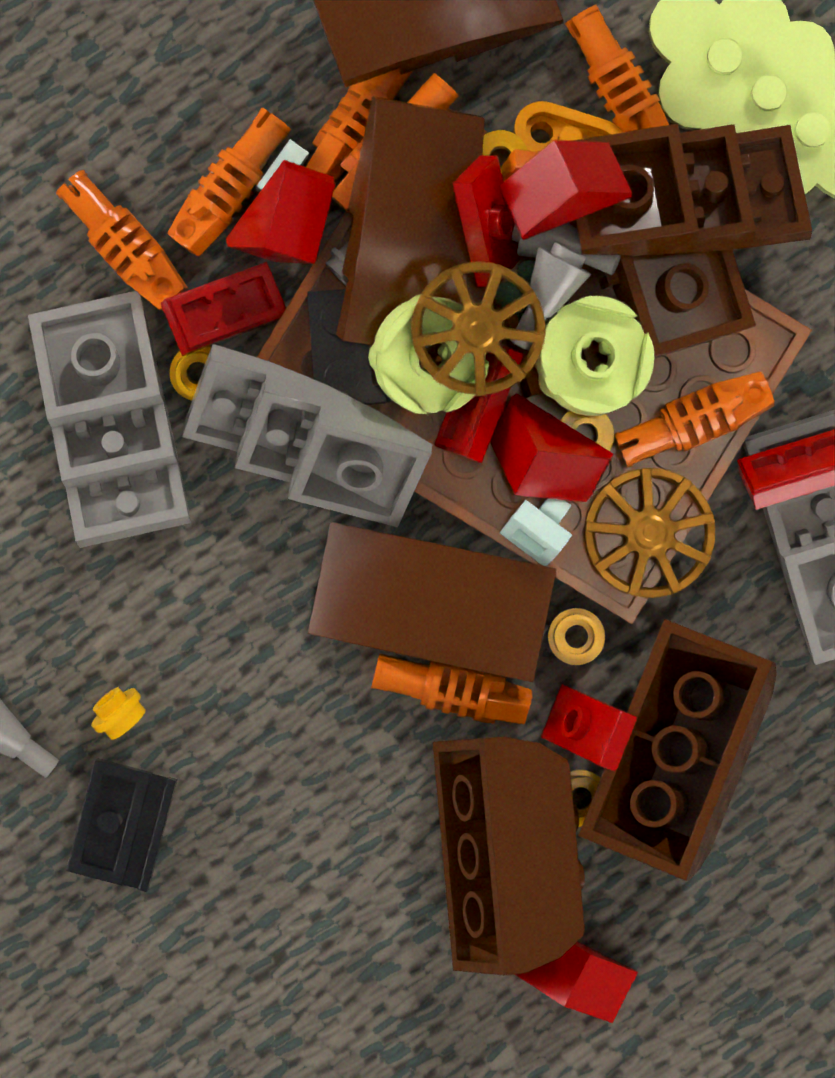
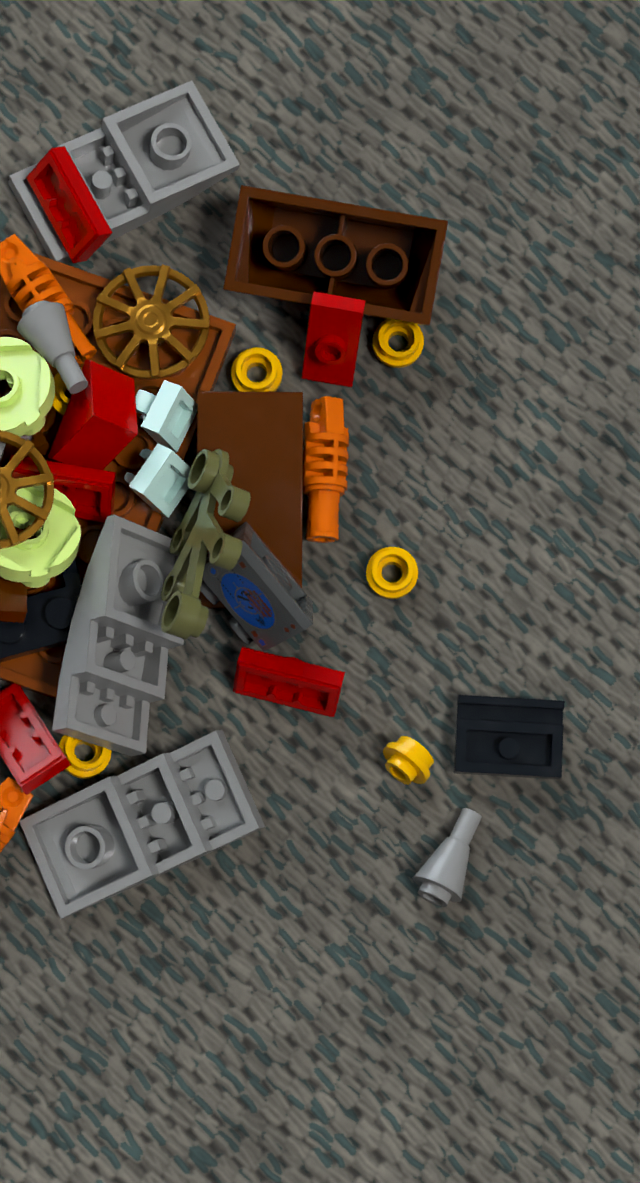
camera: 105 degrees left, 10 degrees down
(226, 603) = (288, 681): none -> red plate
(322, 756) = (392, 556): none -> yellow plate
(328, 588) = (258, 593): none -> dark grey slope
(385, 540) = (195, 535): none -> olive plant
(467, 510) = (160, 480): none -> light aqua tile
(508, 853) = (460, 387): reddish brown windscreen -> none
(584, 981) = (551, 319): red slope -> none
(645, 420) = (48, 332): none -> light grey cone

